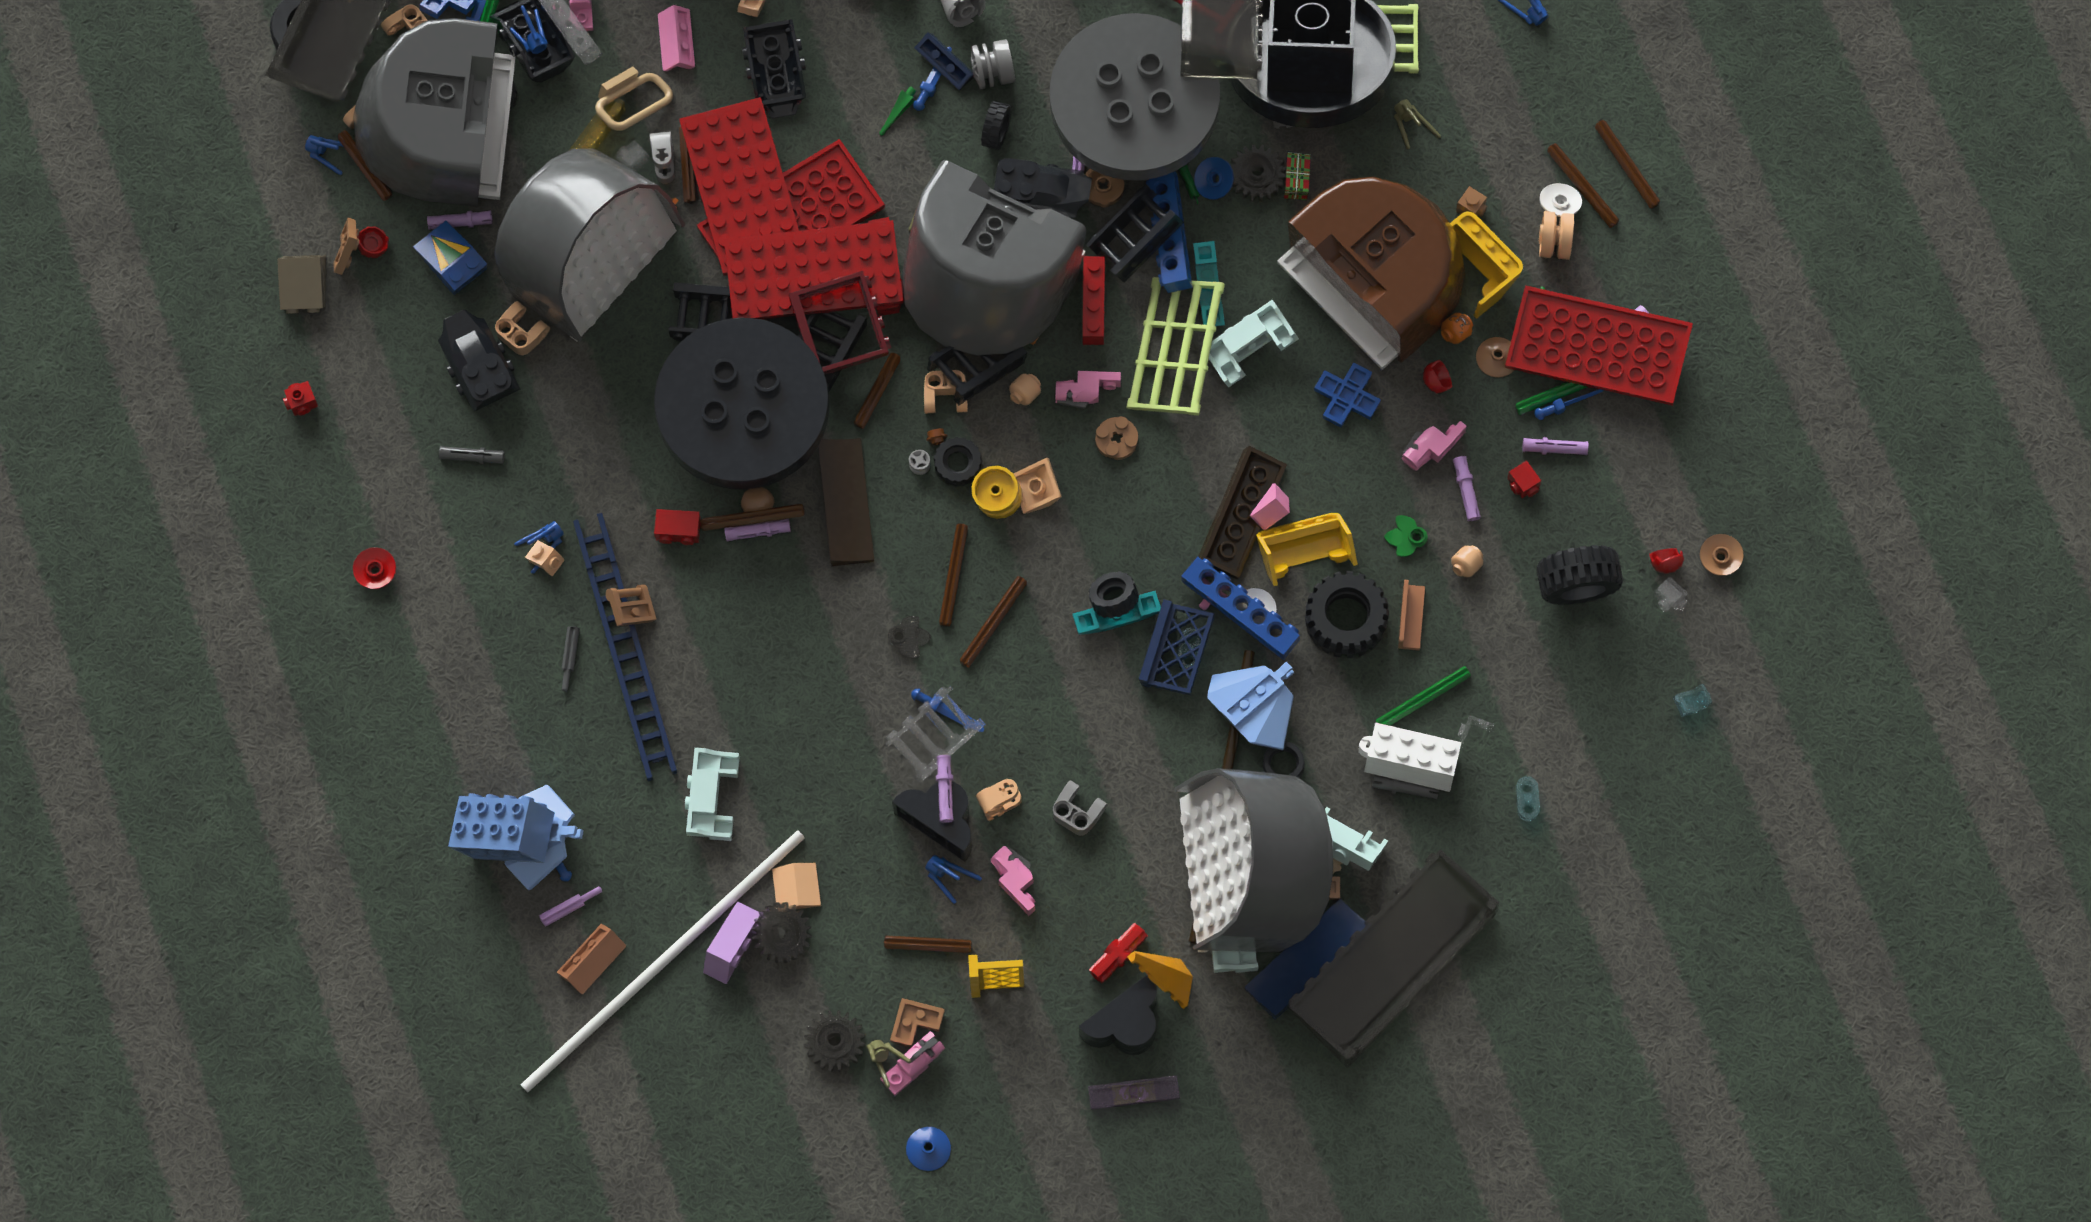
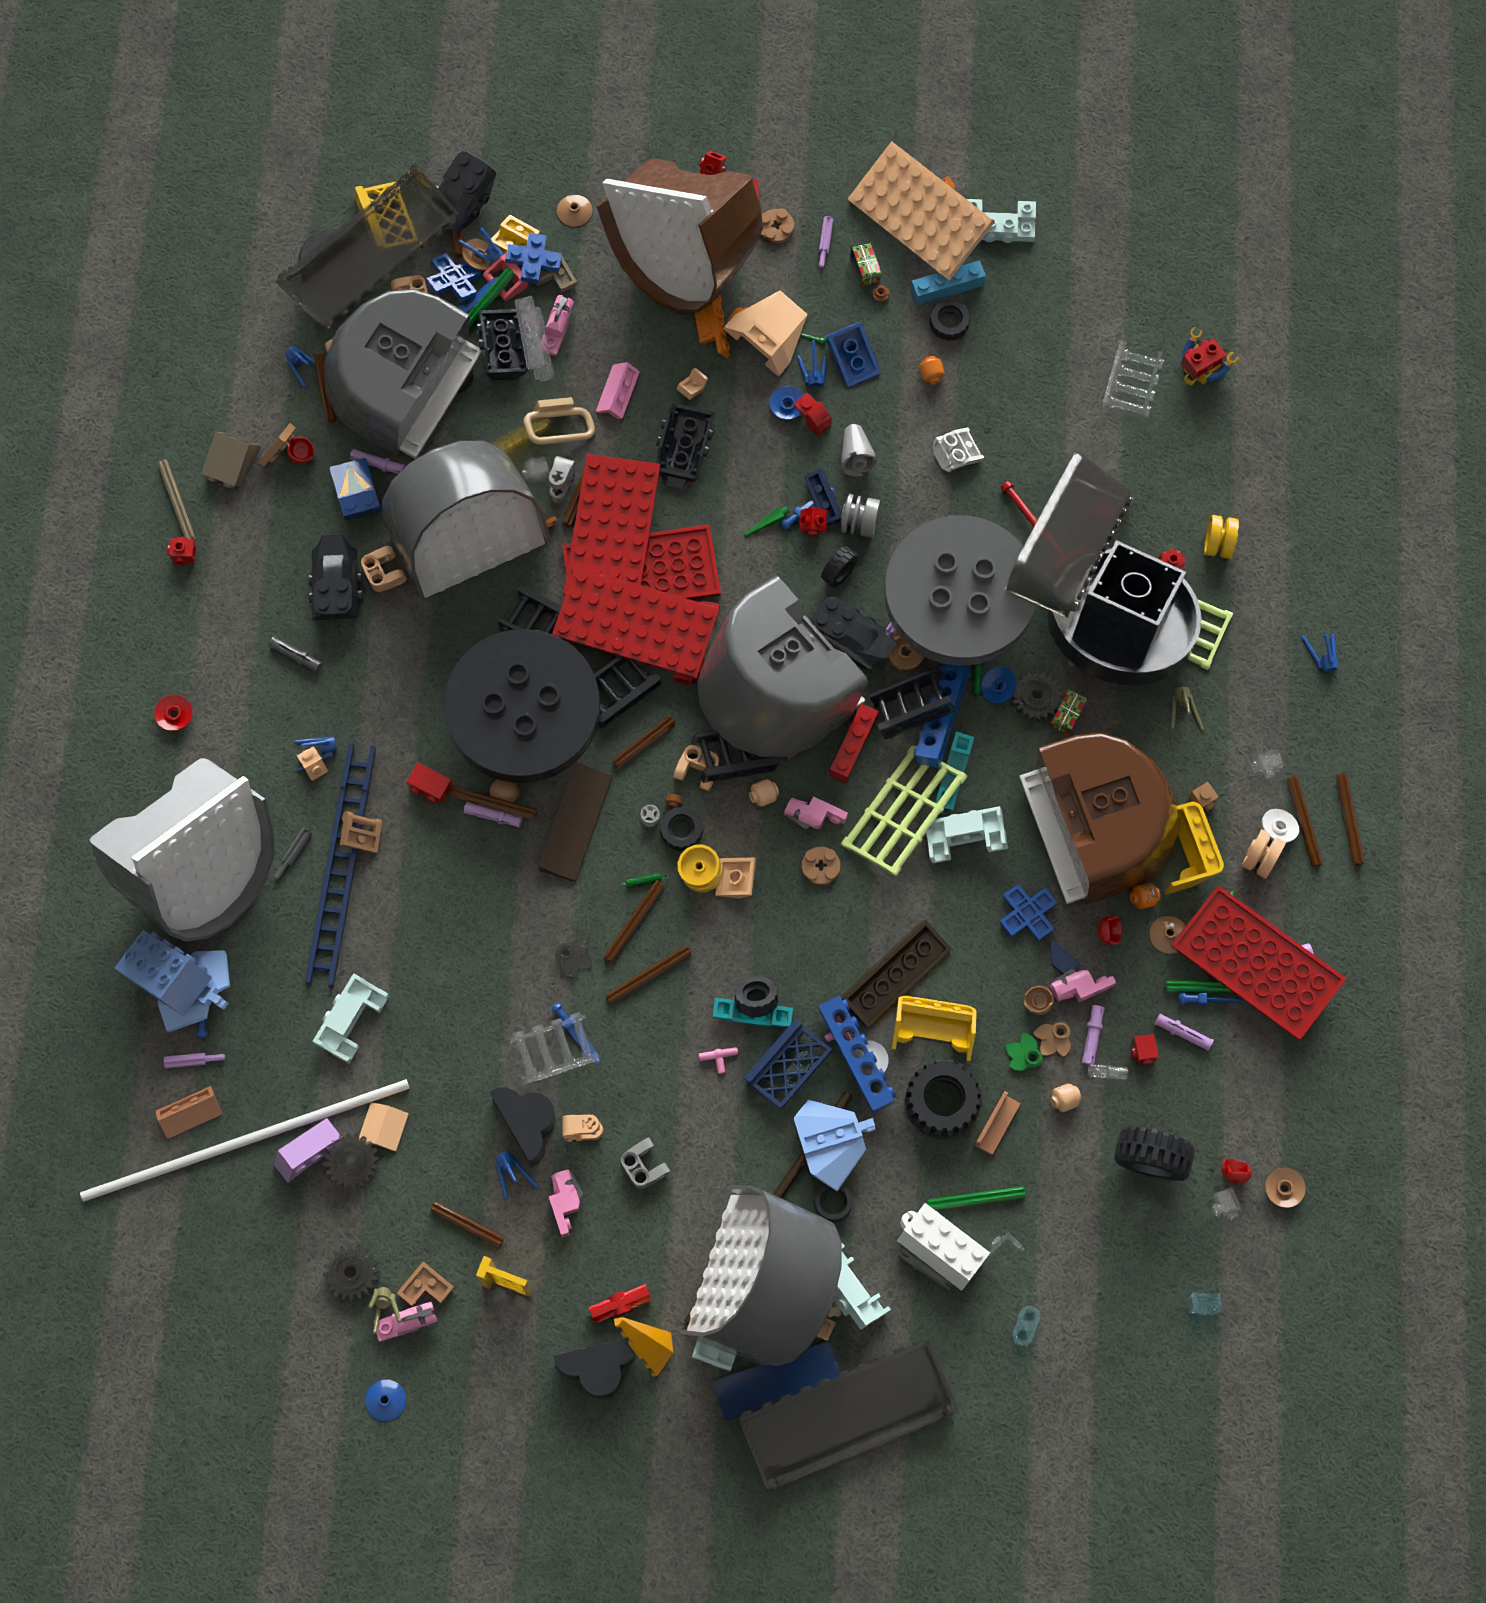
camera: 20 degrees right, 0 degrees up
(264, 348) = (176, 499): none -> dark tan axle
(477, 694) = (191, 854): none -> piece
(536, 41) = (502, 344): blue plant -> none
(871, 304) = (608, 638): dark red window -> none
(942, 530) = (643, 880): none -> green piece
(944, 781) = (537, 1099): lavender pin -> none
(945, 90) = (813, 521): none -> red brick
(1101, 669) = (718, 1055): none -> bright pink piece
(1133, 1092) = (577, 1431): plate -> none
(1271, 507) = (921, 980): bright pink slope -> none
(1399, 473) = (1043, 998): none -> medium nougat hair
(1401, 427) = (1061, 958): none -> dark blue tile
(1428, 512) = (1051, 1040): none -> medium nougat plate
(1497, 518) = (1107, 1071): none -> clear axle
(1520, 143) = (1267, 763): none -> clear brick

